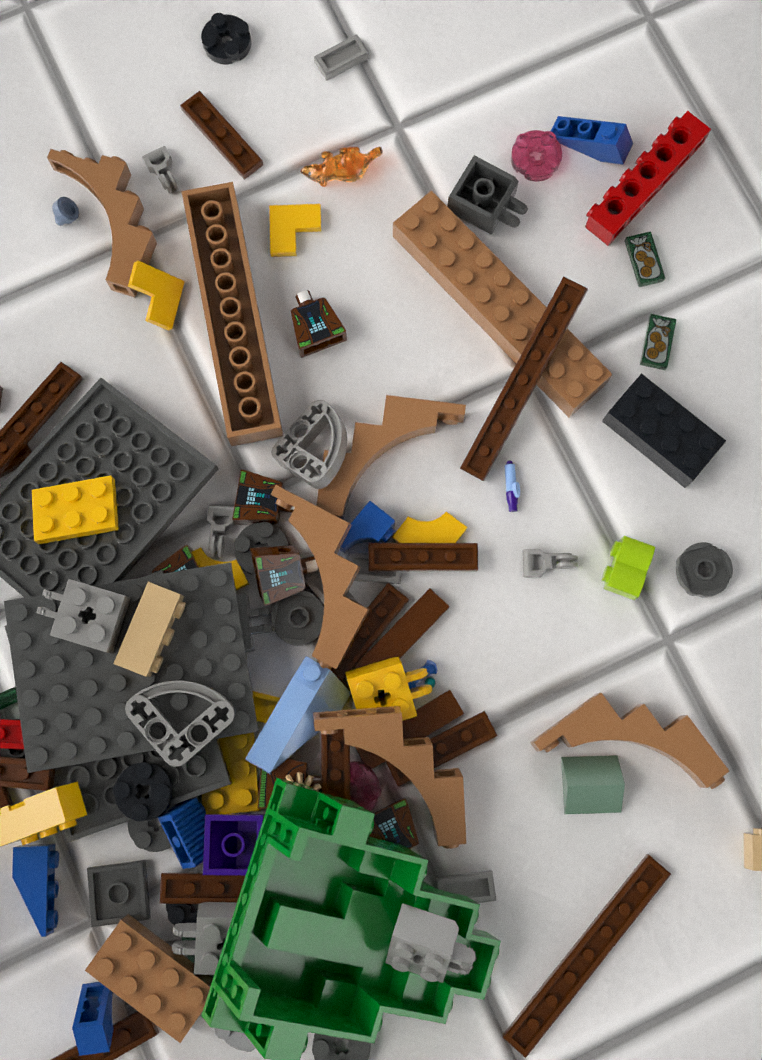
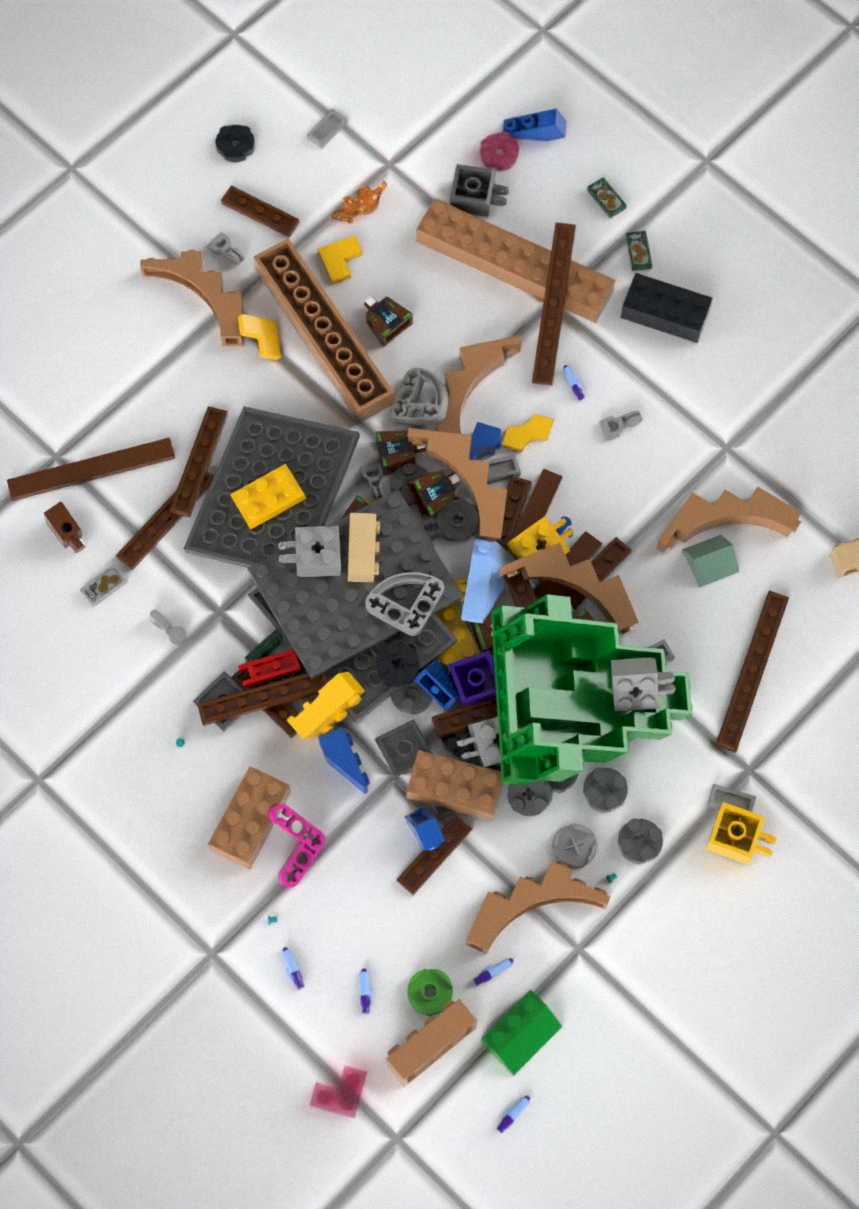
camera: 20 degrees left, 10 degrees down
(65, 211) = (166, 300): sand blue tile -> none
(423, 556) = (530, 448): reddish brown tile -> none
(628, 567) = (678, 407): lime brick -> none
(690, 133) = (571, 183): red brick -> none
(695, 583) = (729, 402): dark grey plate -> none

